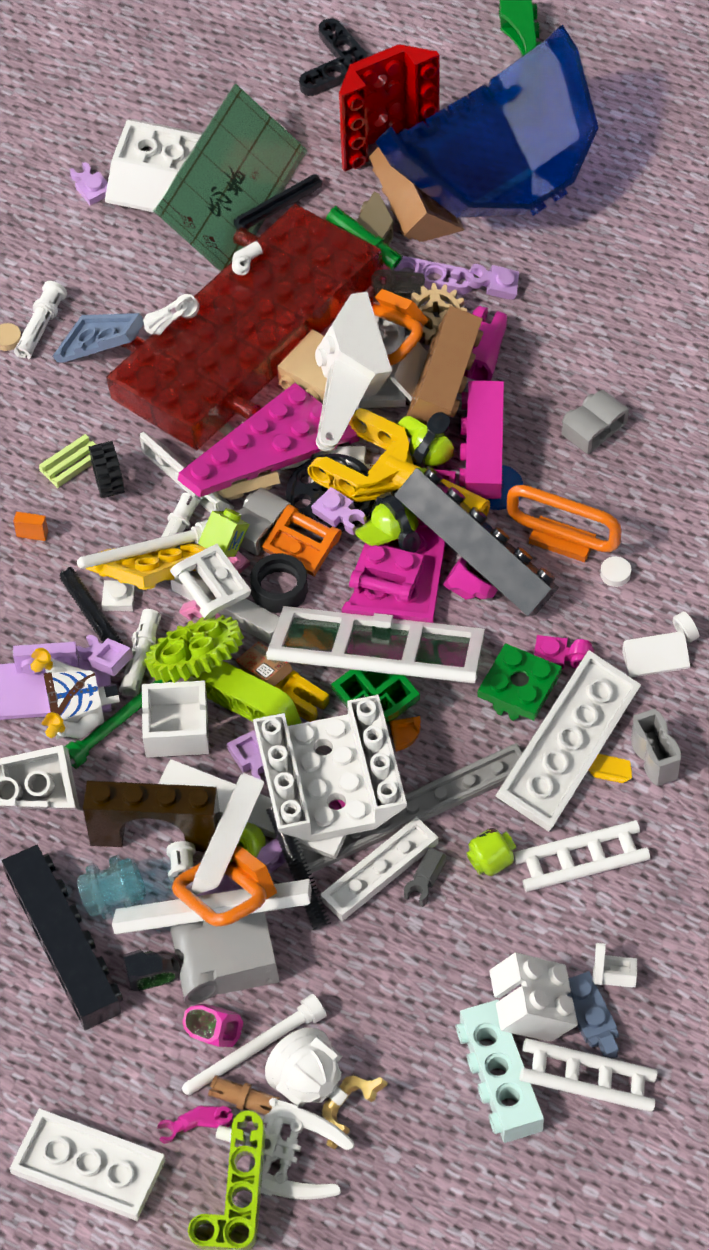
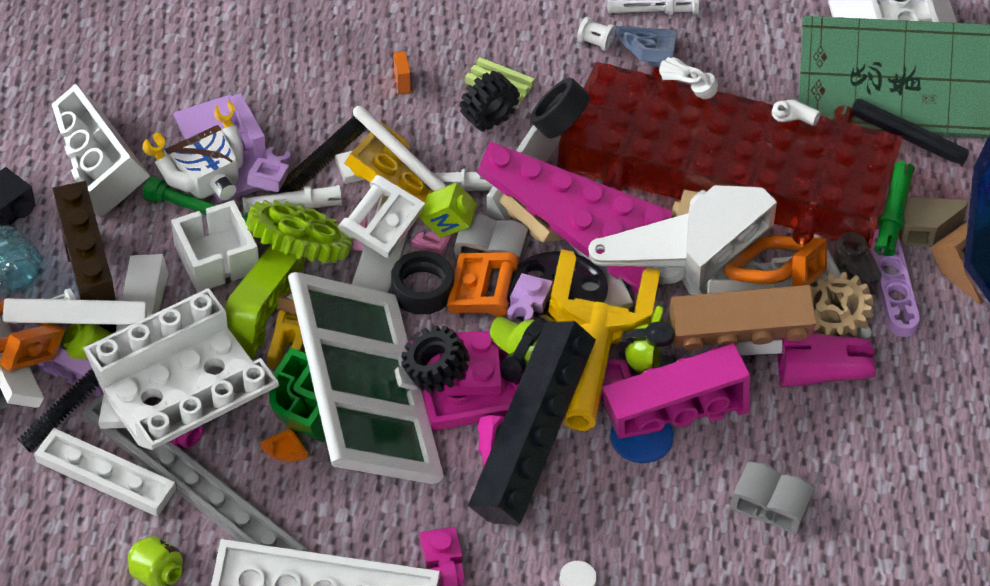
camera: 65 degrees right, 5 degrees down
(56, 372) = (588, 26): none -> white bush
(175, 408) = (560, 108): none -> black tyre
(378, 570) = (443, 370): none -> black tyre
(426, 875) = (109, 516): dark grey bar -> none
(498, 280) = (919, 352): lavender plate -> none
(519, 683) = (375, 522): green piece -> none
(560, 536) = (599, 501): orange bar -> none

